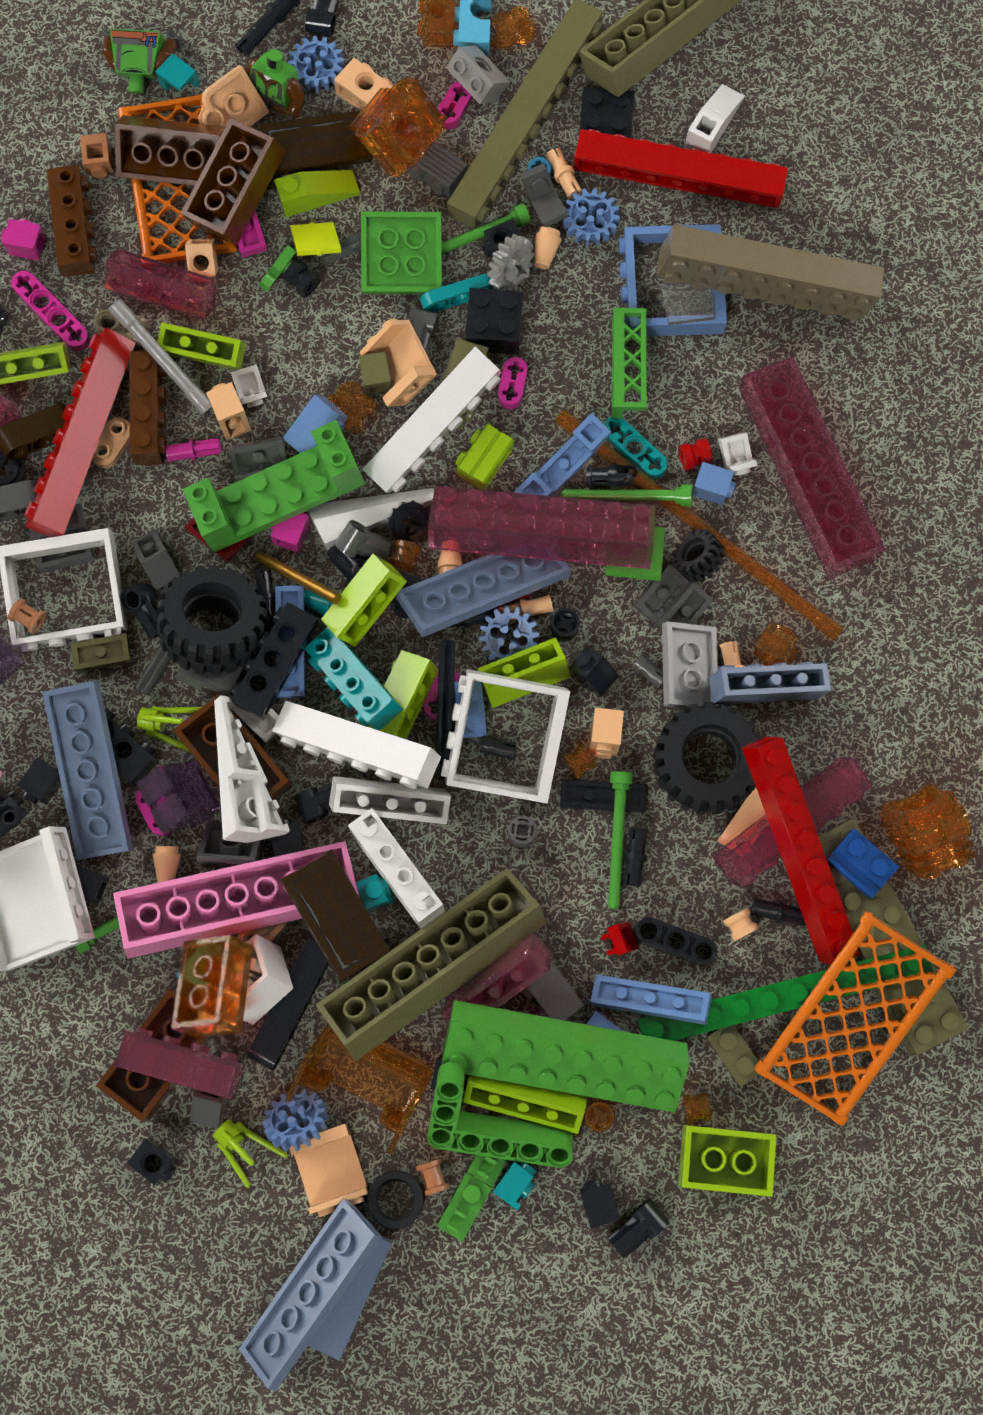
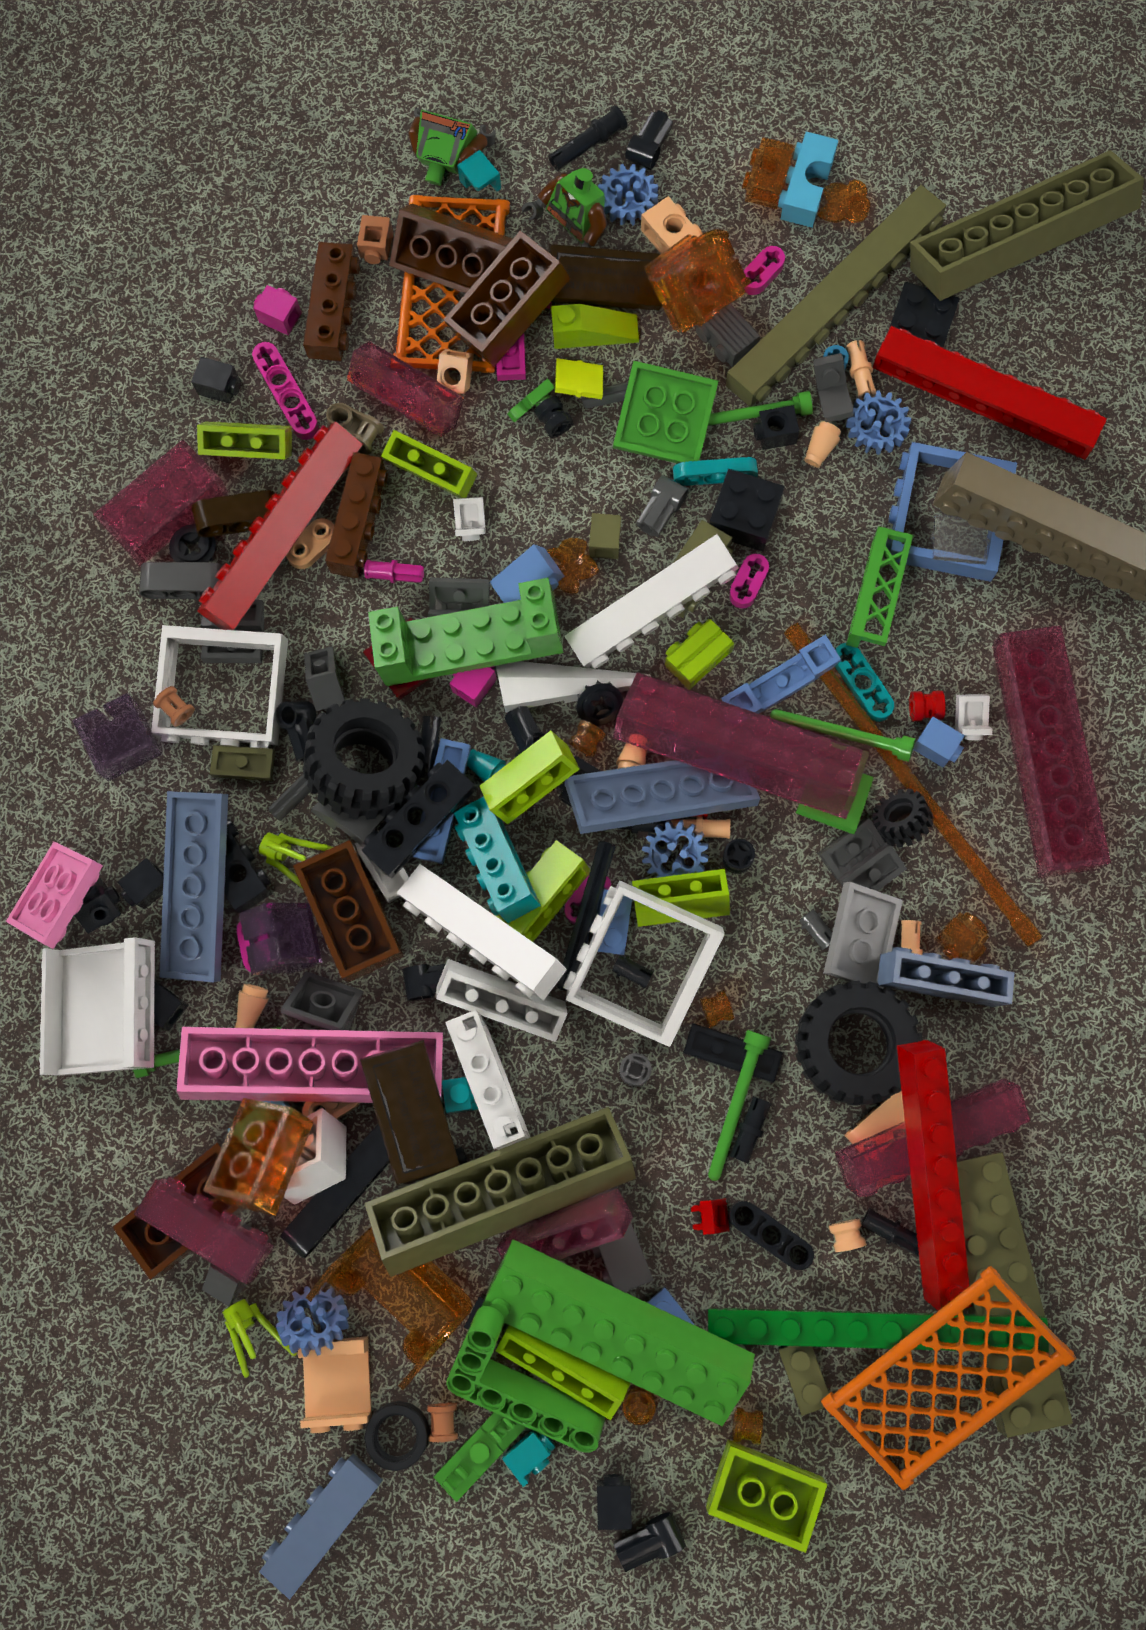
camera: 20 degrees right, 0 degrees up
(130, 322) = (361, 423): light grey piece -> none
(141, 1157) = (139, 1323): black brick -> none
(228, 410) = (440, 539): light nougat brick -> none
(232, 98) = (531, 211): light nougat plate -> none
(245, 802) = (347, 962): white wedge -> none
(290, 842) = (383, 1012): black brick -> none
(298, 577) = (467, 735): pearl gold bar -> none
(309, 1294) = (277, 1517): sand blue plate -> none
(359, 540) = (541, 711): dark grey piece -> none
(406, 360) = (641, 529): light nougat panel -> none
(477, 74) = (795, 243): light grey brick -> none
(511, 263) = (779, 453): light grey gear -> none
(593, 672) = (756, 916): black brick -> none
(606, 732) = (752, 986): light nougat brick -> none
(610, 476) = (828, 707): black piece -> none
(651, 999) = (728, 1293): medium blue plate -> none
(713, 119) = (1038, 347): white slope -> none
(862, 863) = (998, 1207): blue plate -> none
(928, 831) = (1082, 1189): clear orange piece -> none

